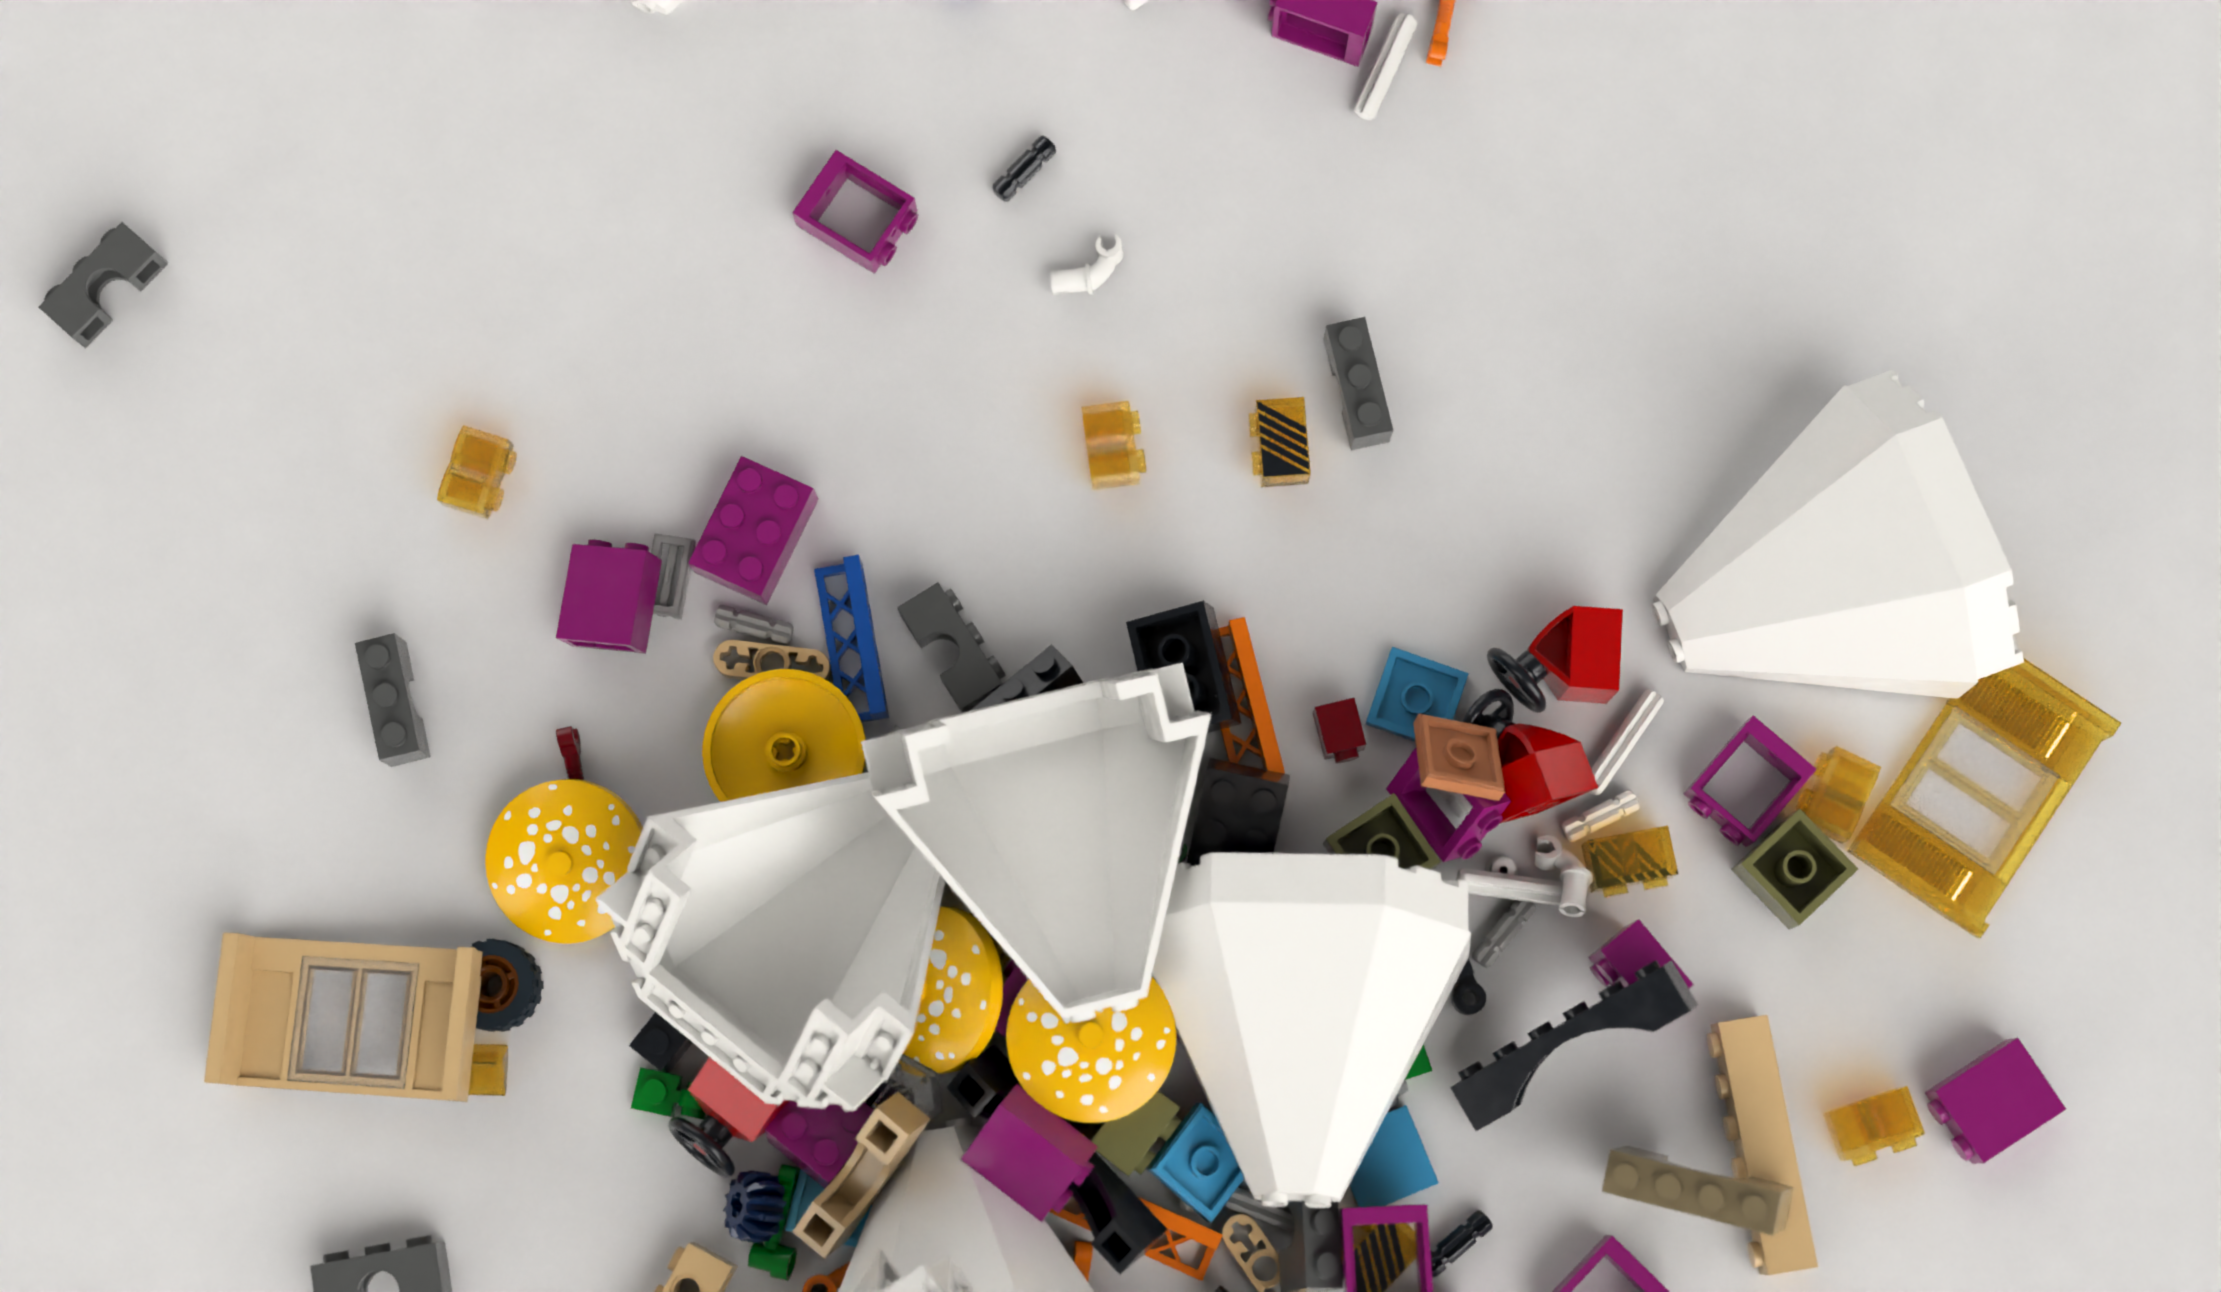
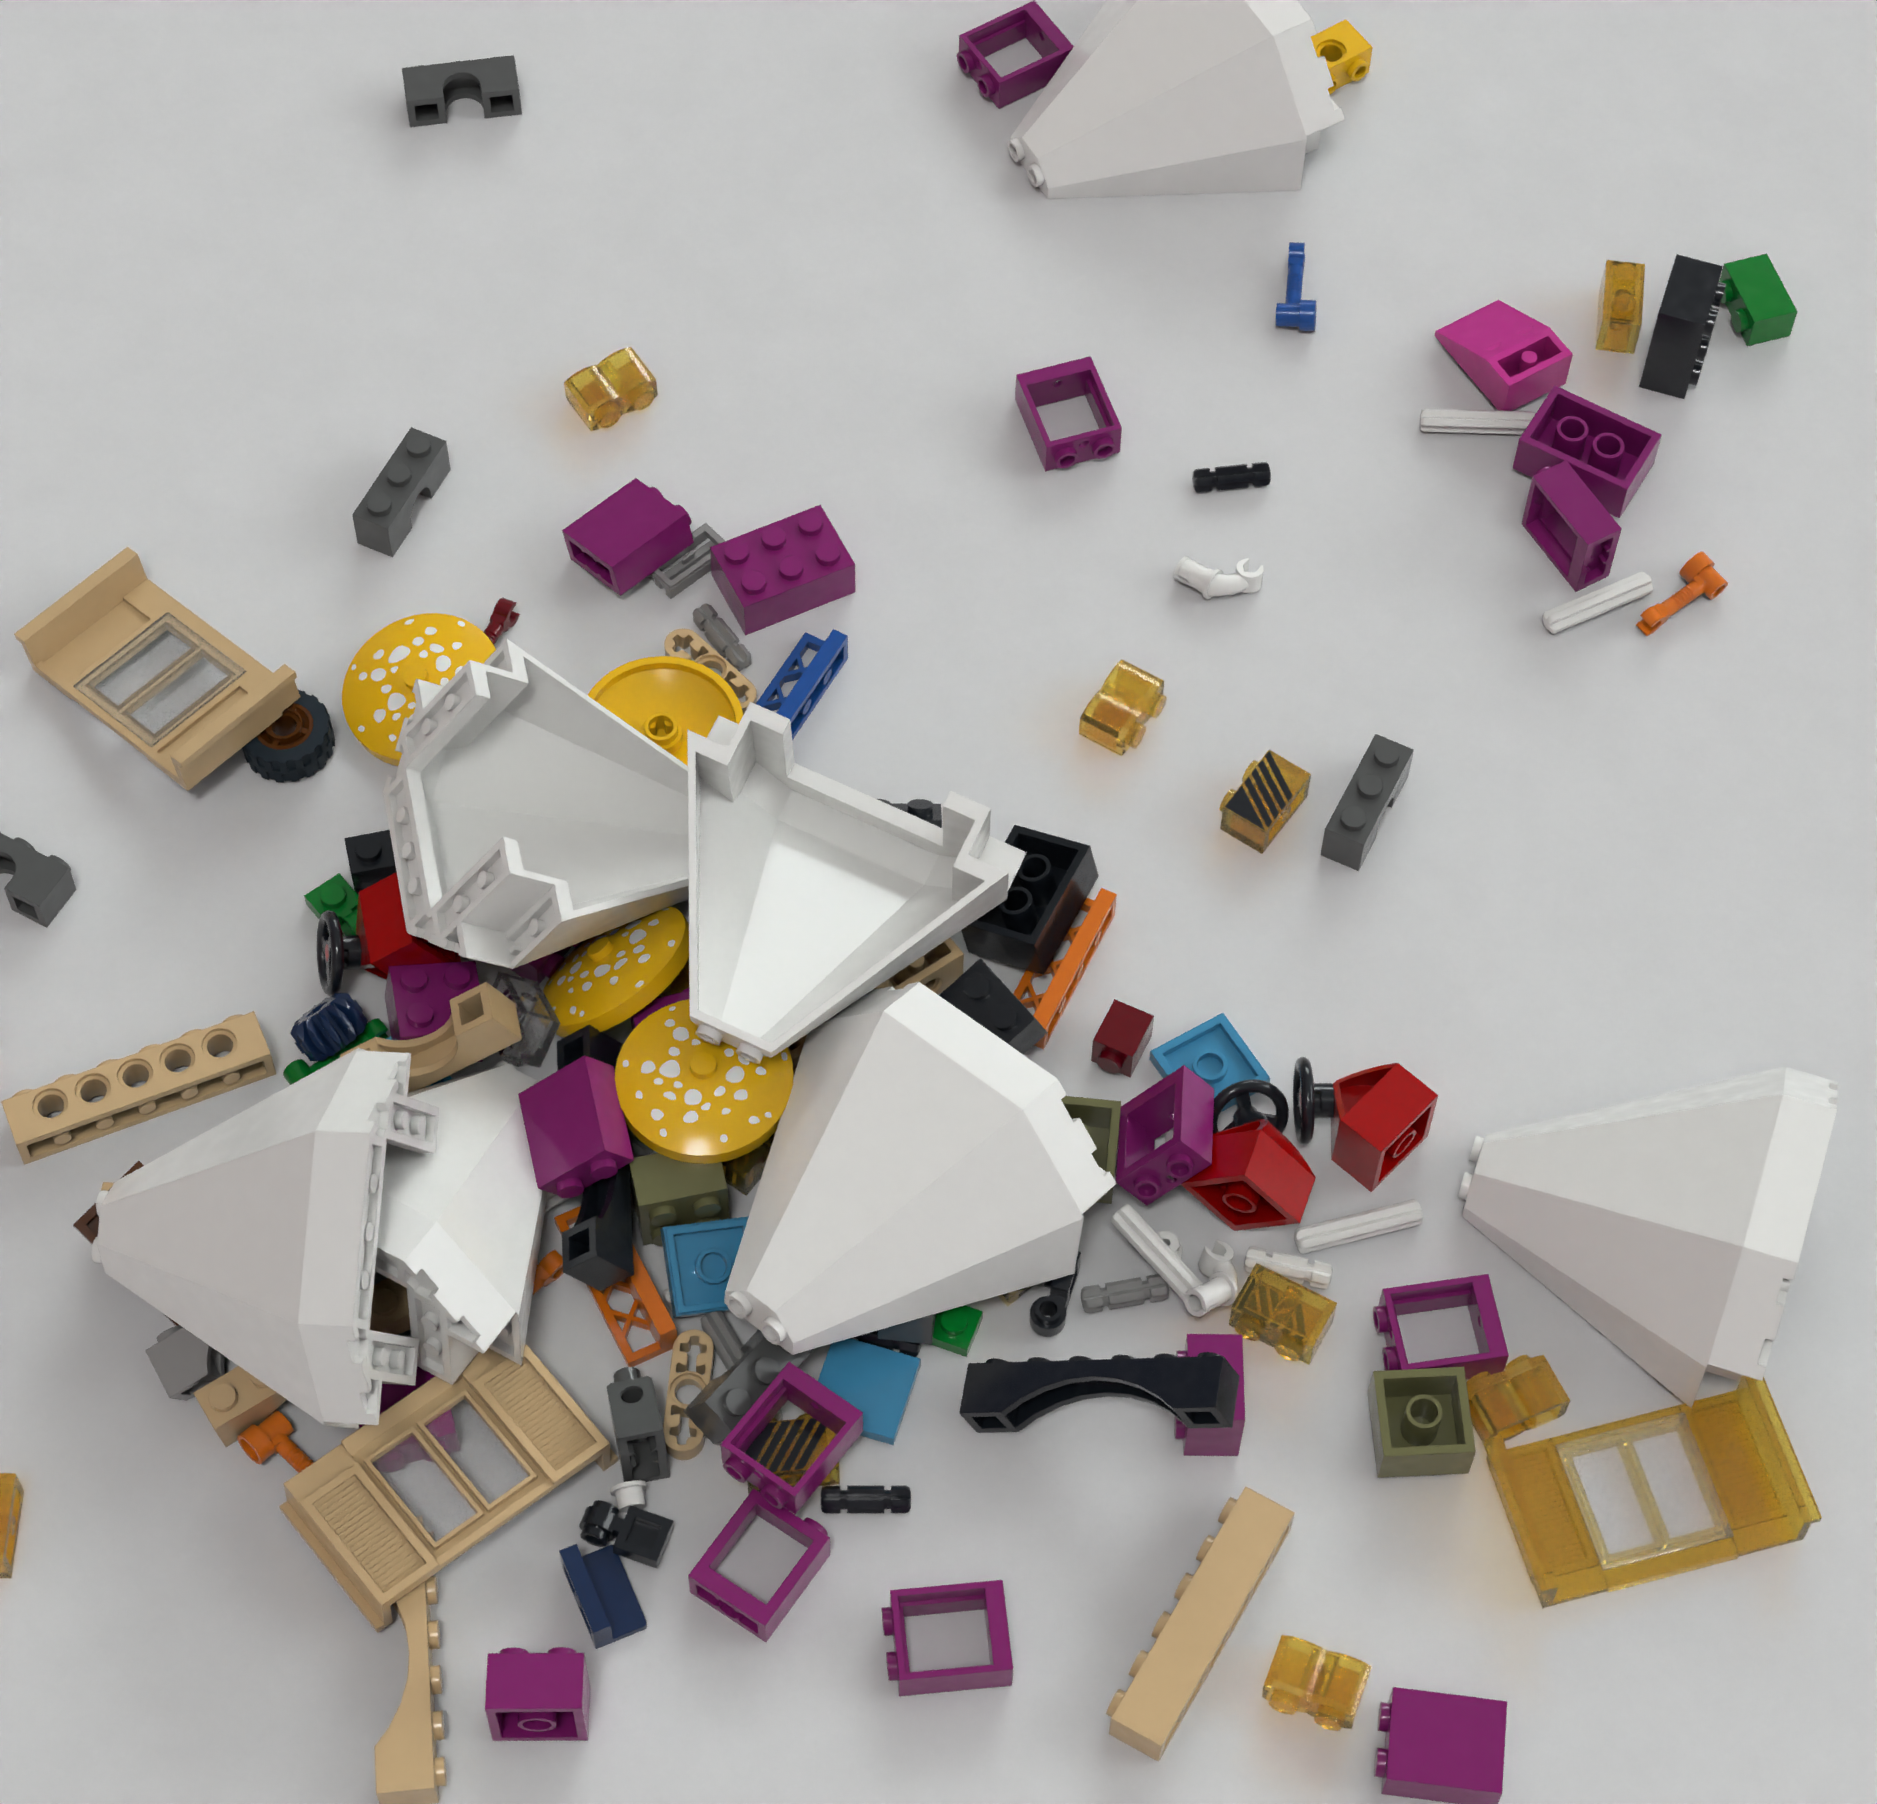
camera: 35 degrees right, 20 degrees down
(489, 1070) = (222, 793): clear yellow slope -> none
(934, 617) = (865, 728): dark grey arch -> none
(1458, 757) = (1195, 1095): nougat tile -> none
(1734, 1201) = (1087, 1559): dark tan arch -> none

